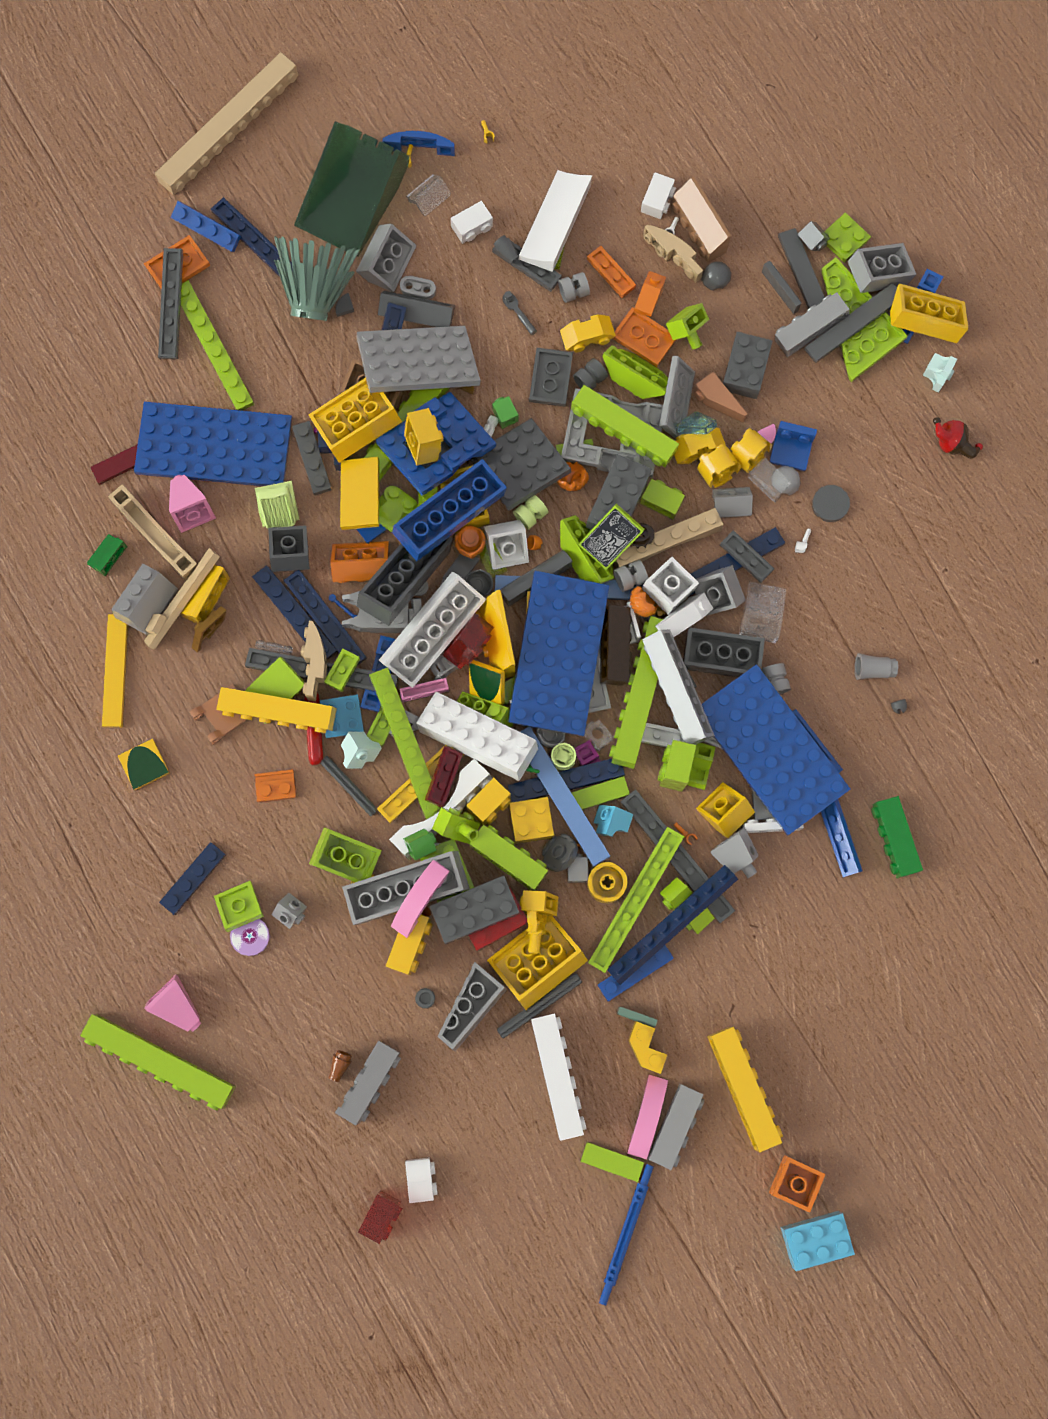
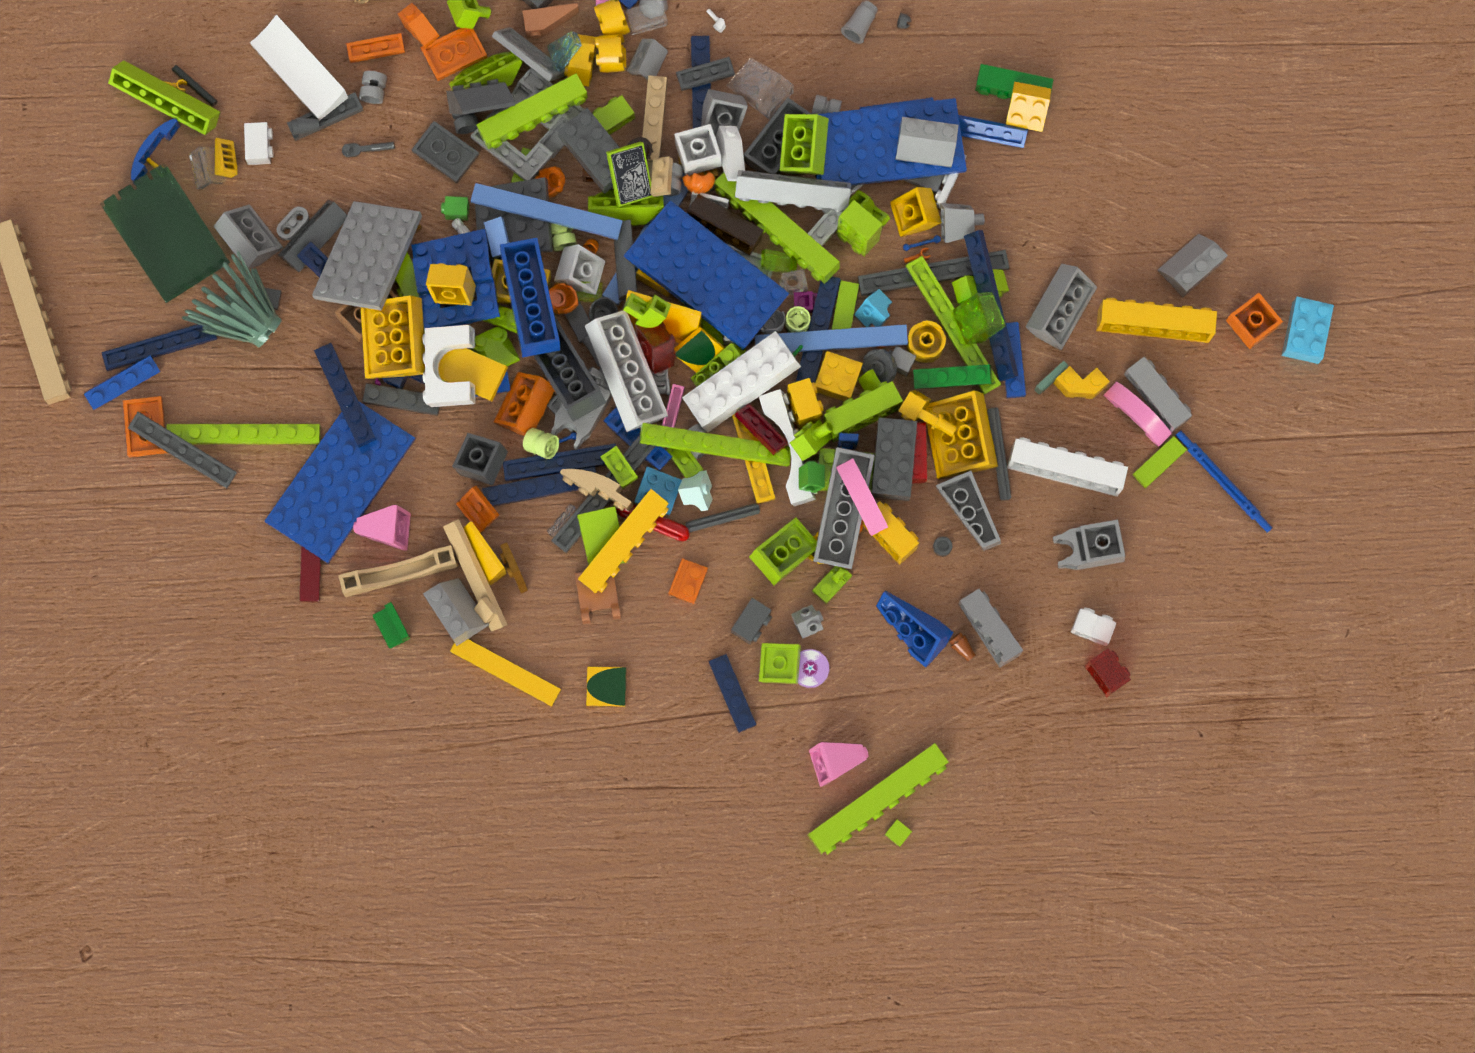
camera: 65 degrees left, 0 degrees up
(137, 1096) = (898, 833): none -> lime tile
(245, 571) = (477, 509): none -> orange plate
(265, 860) = (751, 621): none -> dark grey brick
(277, 505) = (431, 451): yellowish green piece -> none
(287, 408) = (345, 395): none -> dark blue plate
(330, 592) = (541, 443): none -> yellowish green wheel
(334, 1019) = (919, 630): none -> blue wedge
(336, 915) = (832, 583): none -> lime hinge
(365, 456) = (437, 343): none -> white arch
(437, 215) = (220, 169): none -> yellow slope
(469, 127) = (164, 97): none -> lime brick
(474, 859) = (847, 440): none -> blue tile
(488, 617) = (649, 313): none -> lime brick
(493, 1131) = (1086, 546): none -> light grey brick
(495, 148) = (194, 85): none -> pearl dark grey bar
(498, 455) = (496, 235): none -> light blue tile
(539, 485) = (546, 211): none -> medium blue tile
(542, 851) = (869, 380): none -> lime tile
(579, 335) = (421, 105): yellow brick -> none
(586, 924) = (952, 376): none -> green brick
(608, 711) = (777, 261): none -> clear neon green tile
(609, 374) = (479, 97): none -> dark grey slope
(626, 566) = (661, 176): none -> tan plate
(652, 919) = (979, 318): none -> clear neon green brick
(710, 991) = (1061, 306): none -> light grey slope
(711, 842) = (936, 239): none -> blue hinge
(725, 674) = (804, 144): none -> lime brick
(791, 783) = (926, 142): none -> light grey slope
(820, 1094) = (1192, 264): none -> light grey slope
(882, 860) = (1028, 106): none -> yellow brick

